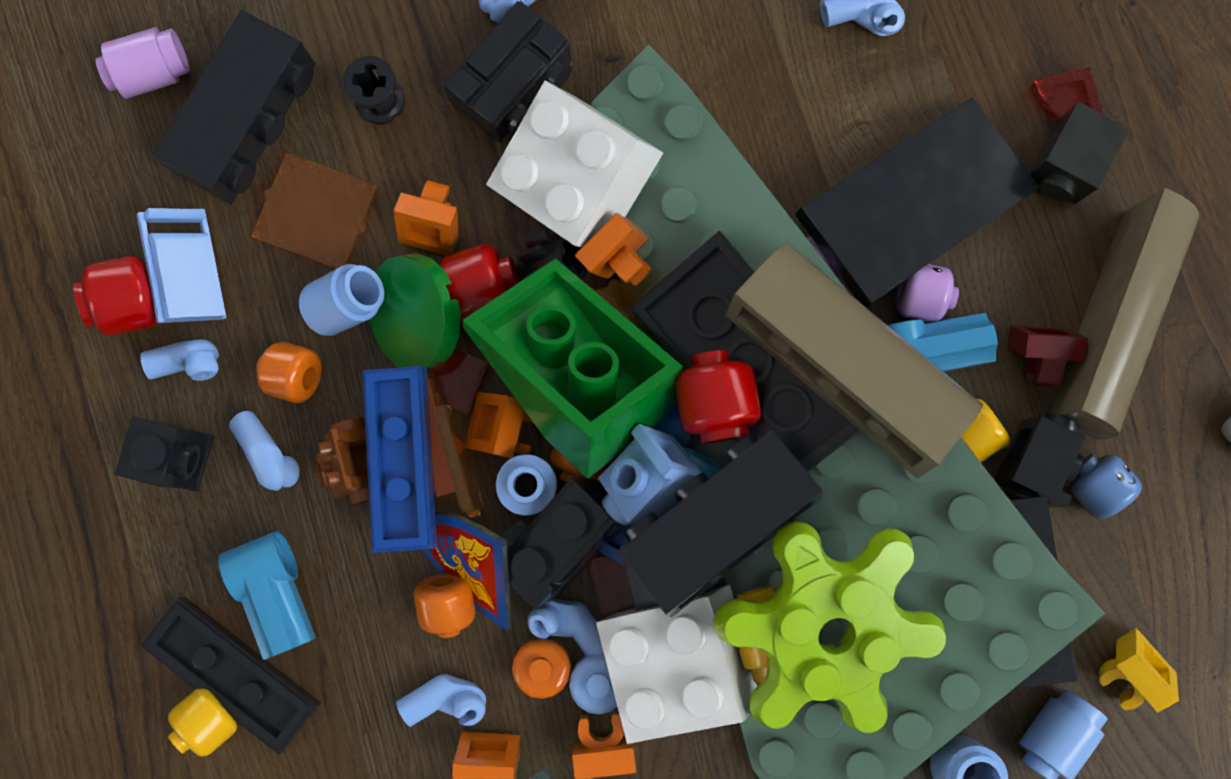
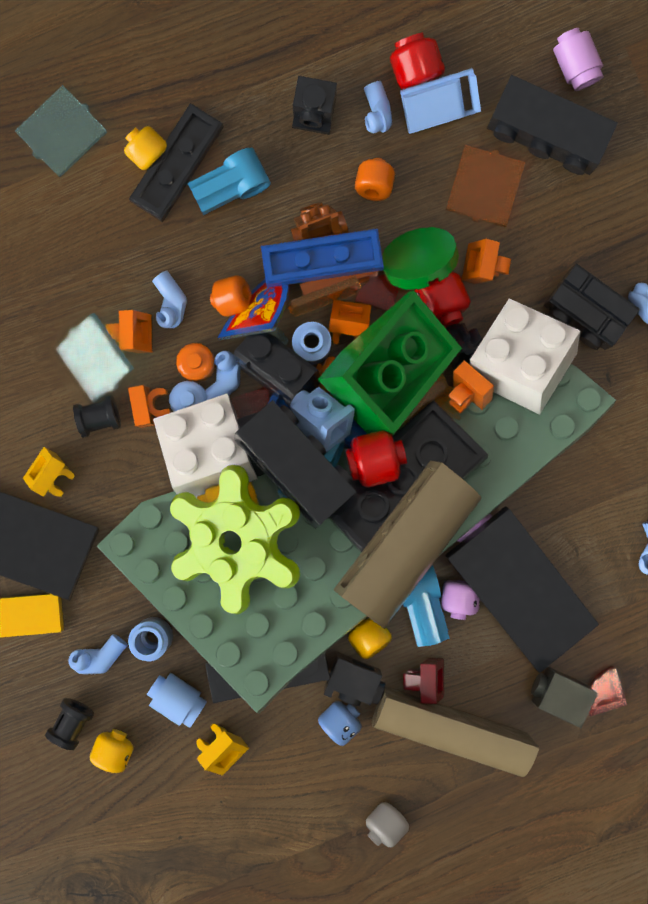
camera: 85 degrees right, 5 degrees up
(262, 453) = (318, 169): light blue arm -> none
(341, 299) = (425, 209): light blue brick -> none
(361, 81) = (579, 209): black bush -> none

